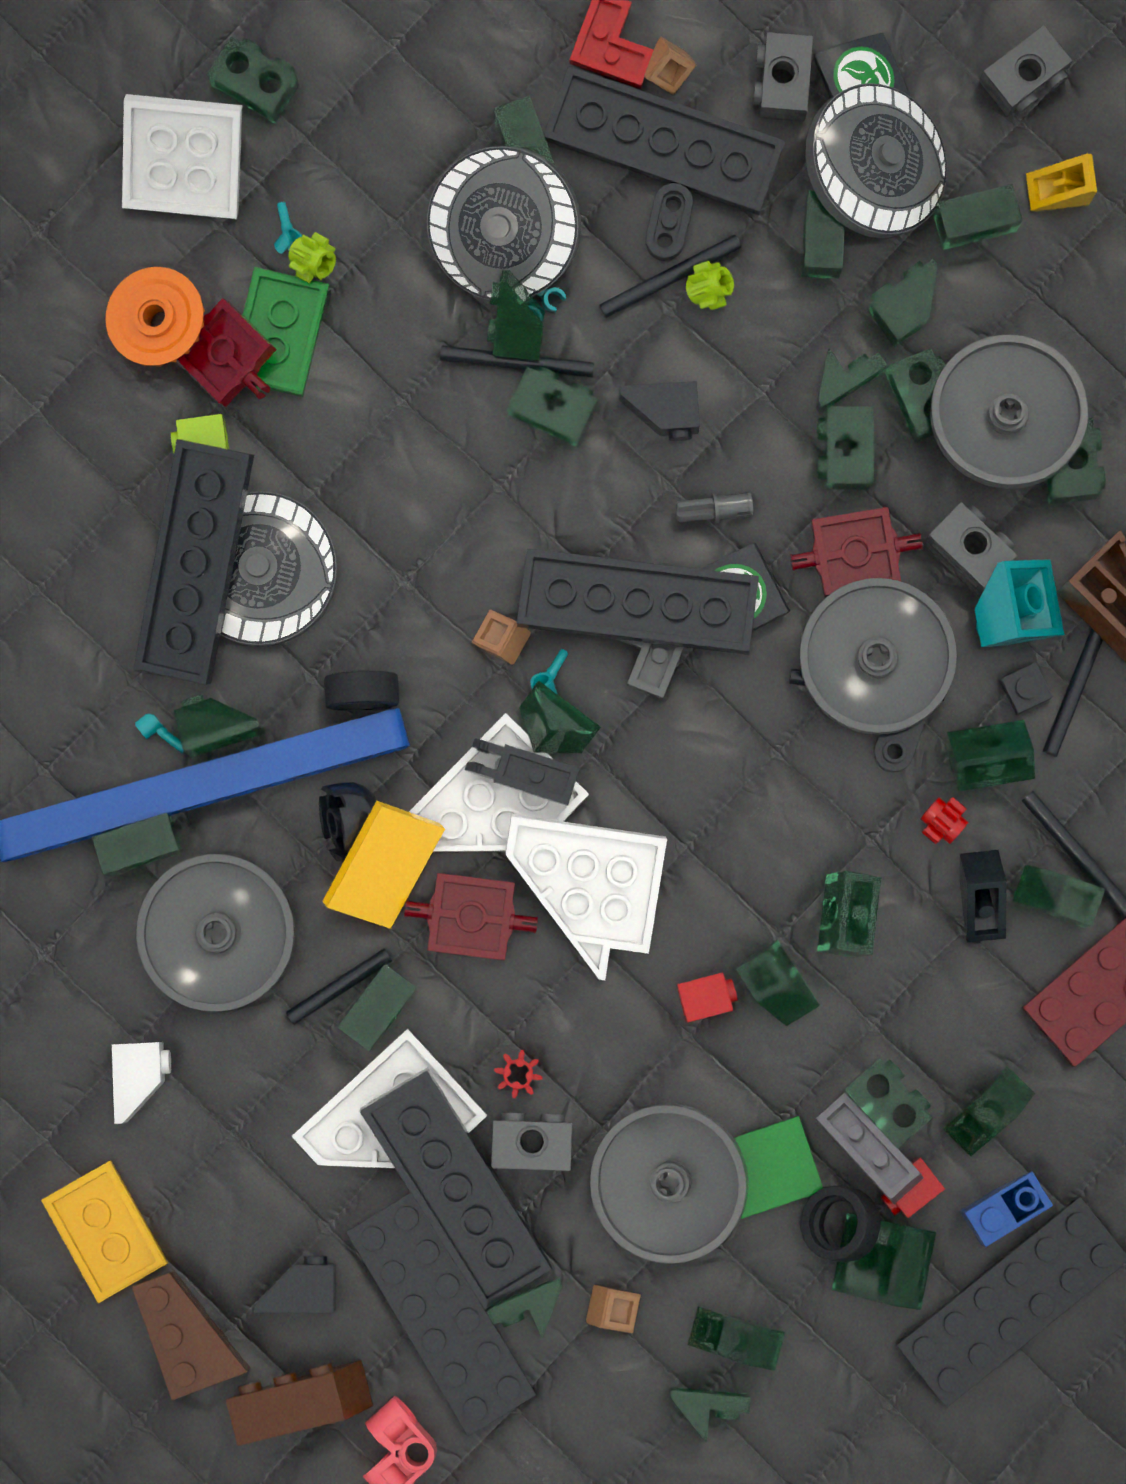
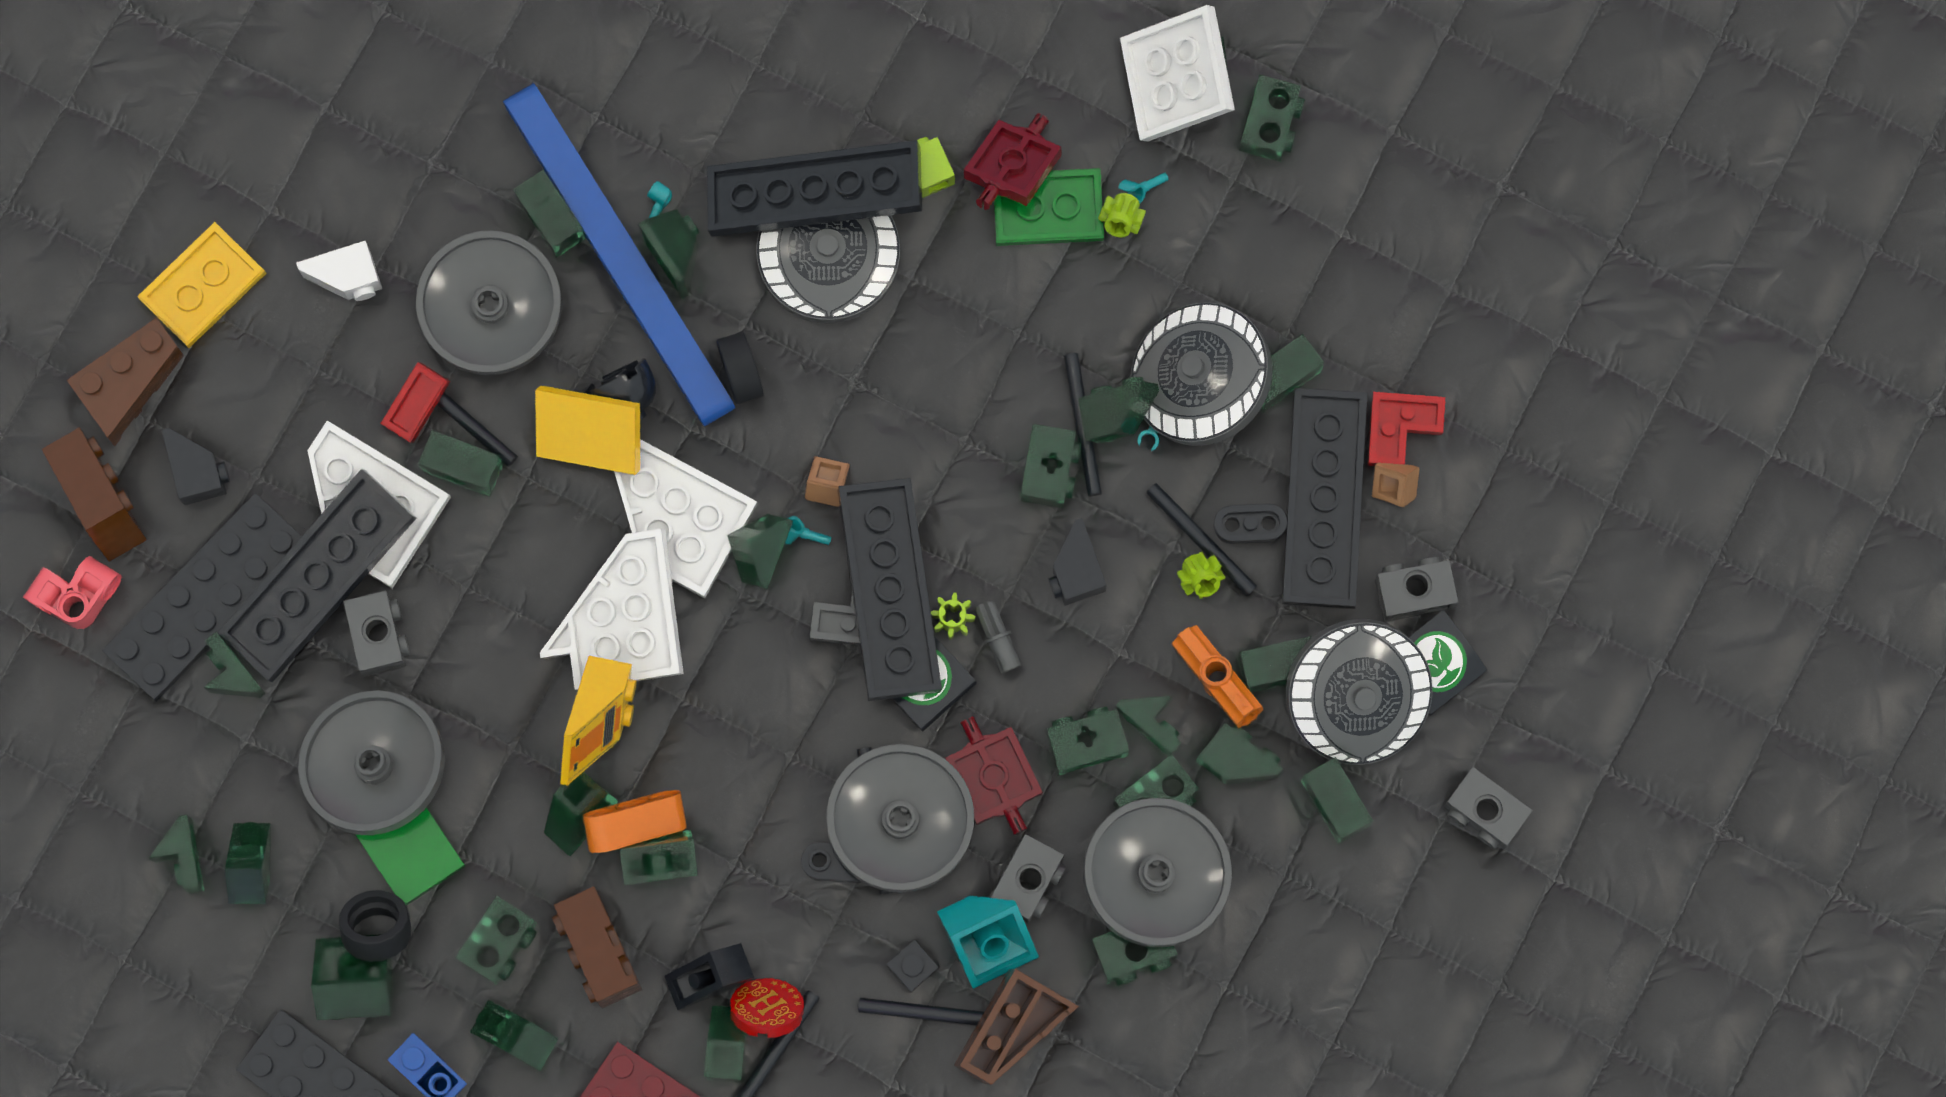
camera: 75 degrees right, 5 degrees down
(136, 303) = (1025, 73): orange gear -> none
(297, 1038) = (415, 402): none -> red tile
(471, 916) = (565, 523): dark red plate -> none
(507, 1072) = (435, 593): red gear -> none
(527, 772) = (706, 534): black hinge -> none
(613, 1309) = (248, 748): medium nougat slope -> none
(682, 929) = (597, 715): none -> yellow slope
(685, 537) = (950, 626): none -> lime gear
(706, 997) = (545, 749): brick -> none
(795, 306) = (1231, 691): none -> orange piece
(807, 927) = (634, 821): none -> orange beam
(869, 1148) = (448, 933): flat silver plate -> none
(919, 1195) = (425, 982): red brick -> none
(925, 1002) = (596, 948): none -> reddish brown wedge
(944, 820) = (768, 921): red gear -> none
(991, 755) = (838, 946): clear green brick -> none
(1033, 844) = (767, 1007): none -> red tile
(1062, 184) = (1390, 870): yellow slope -> none

